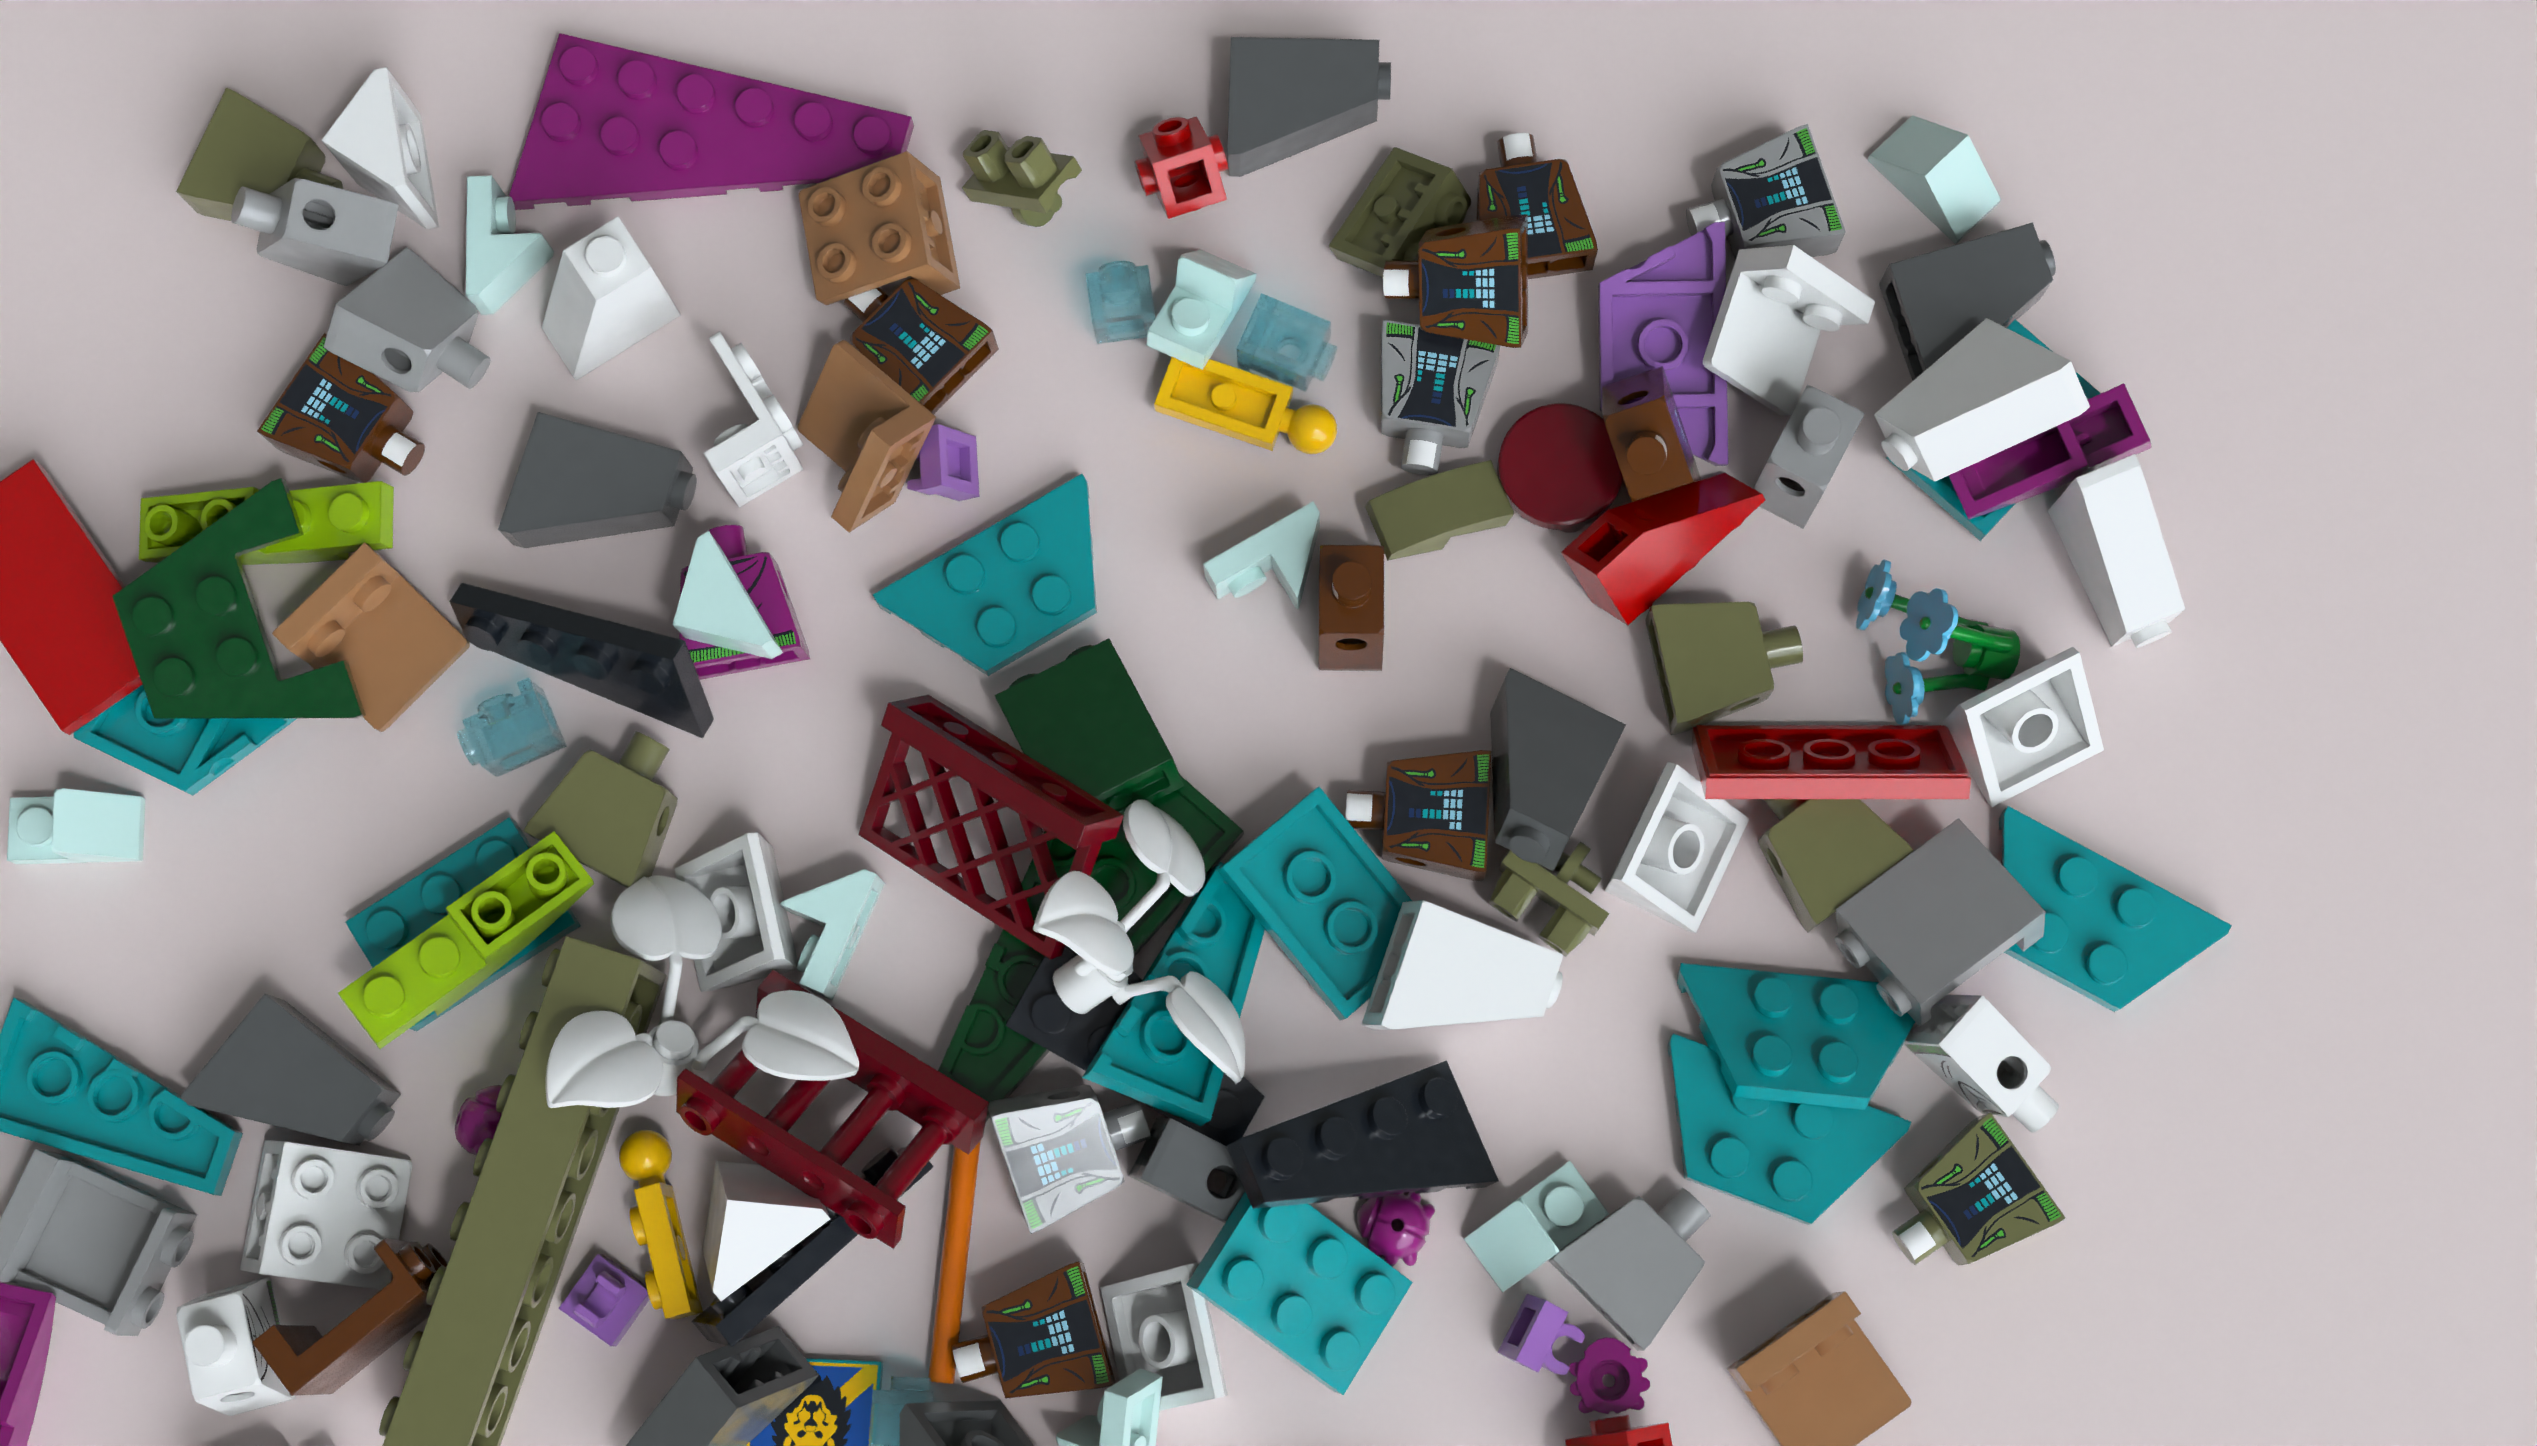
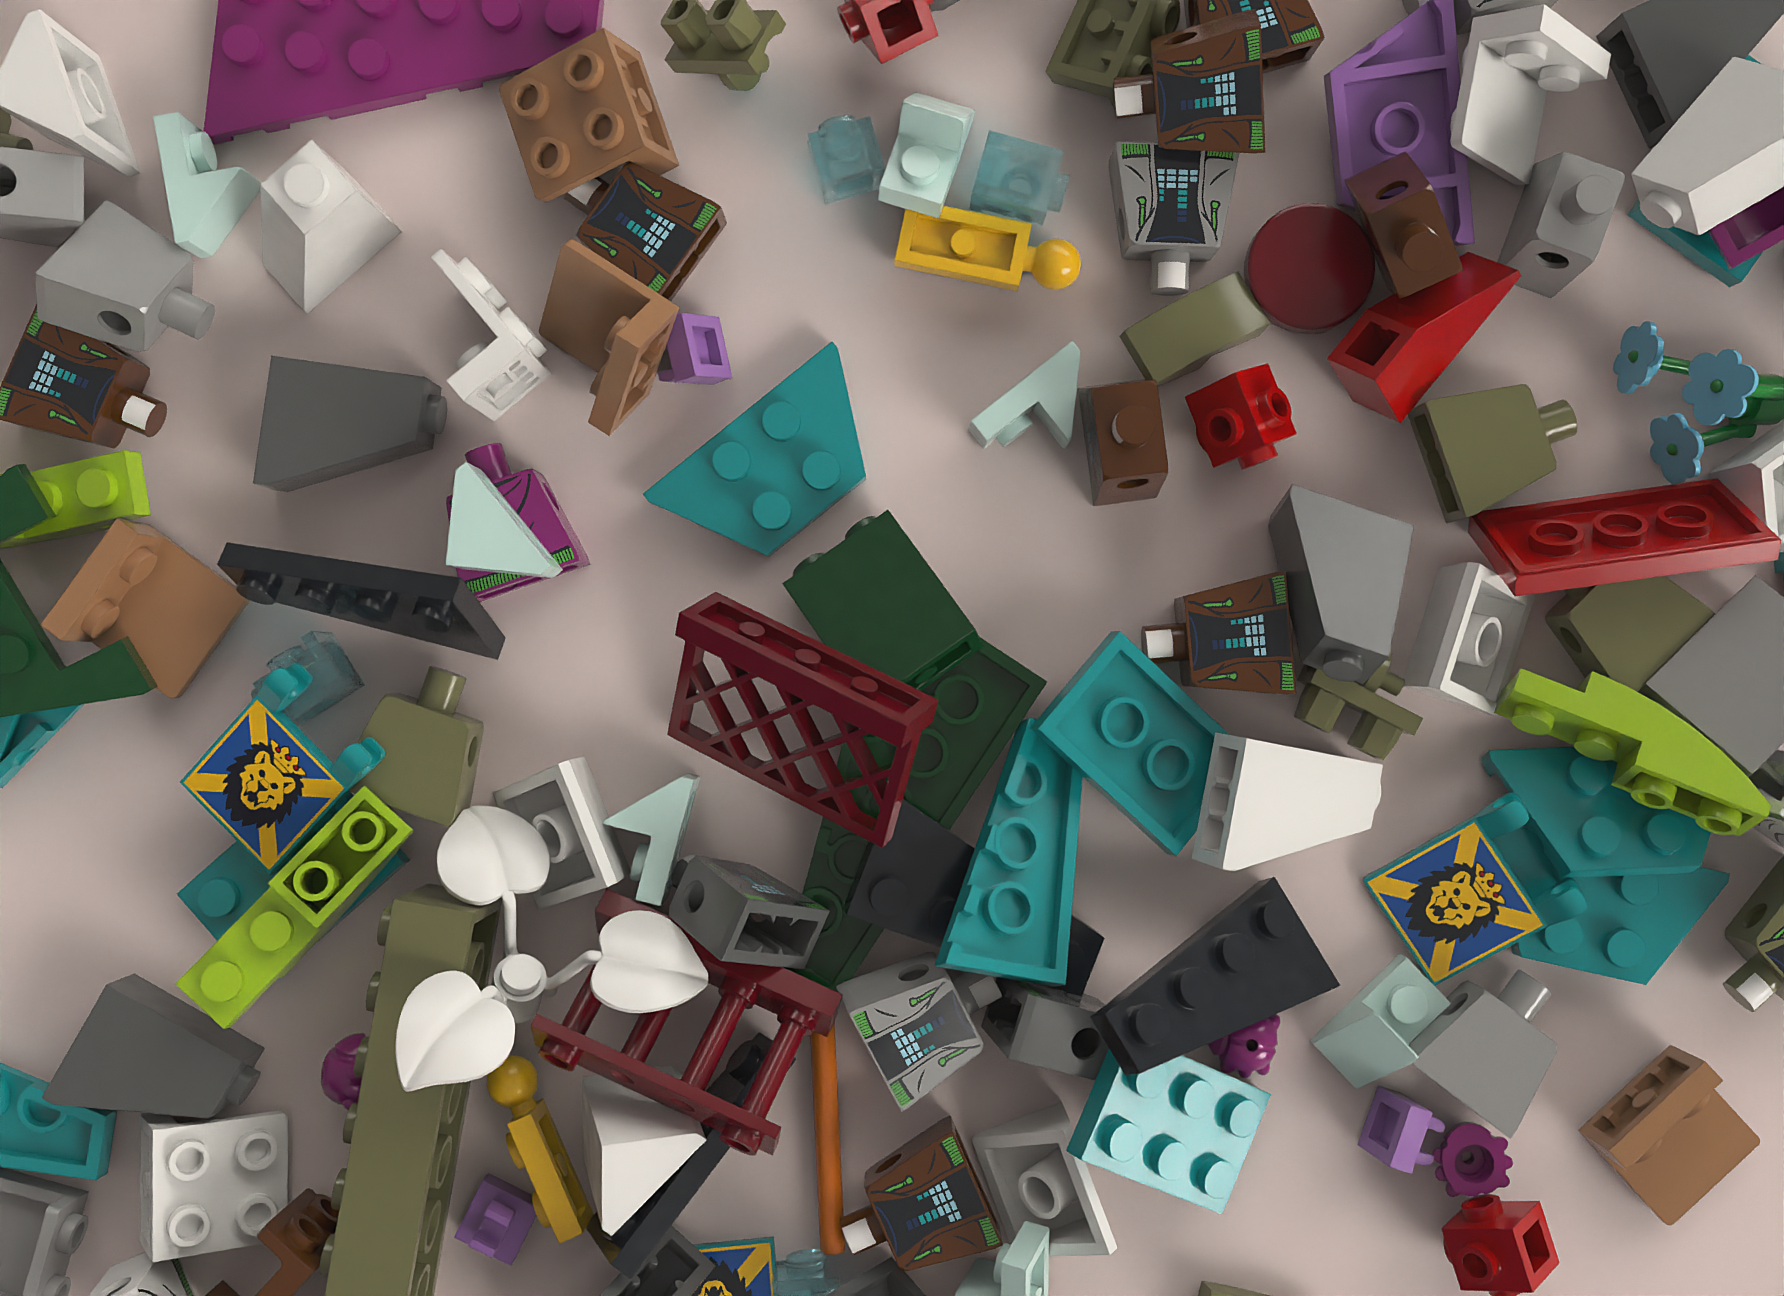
camera: 15 degrees left, 10 degrees up
(462, 815) = (270, 778): none -> flag
(882, 1000) = (715, 908): none -> dark grey torso
(1086, 921) = (930, 846): white plant -> none
(1471, 598) = (1241, 417): none -> red brick
(1631, 1107) = (1462, 900): none -> flag
(1837, 977) = (1656, 752): none -> lime slope

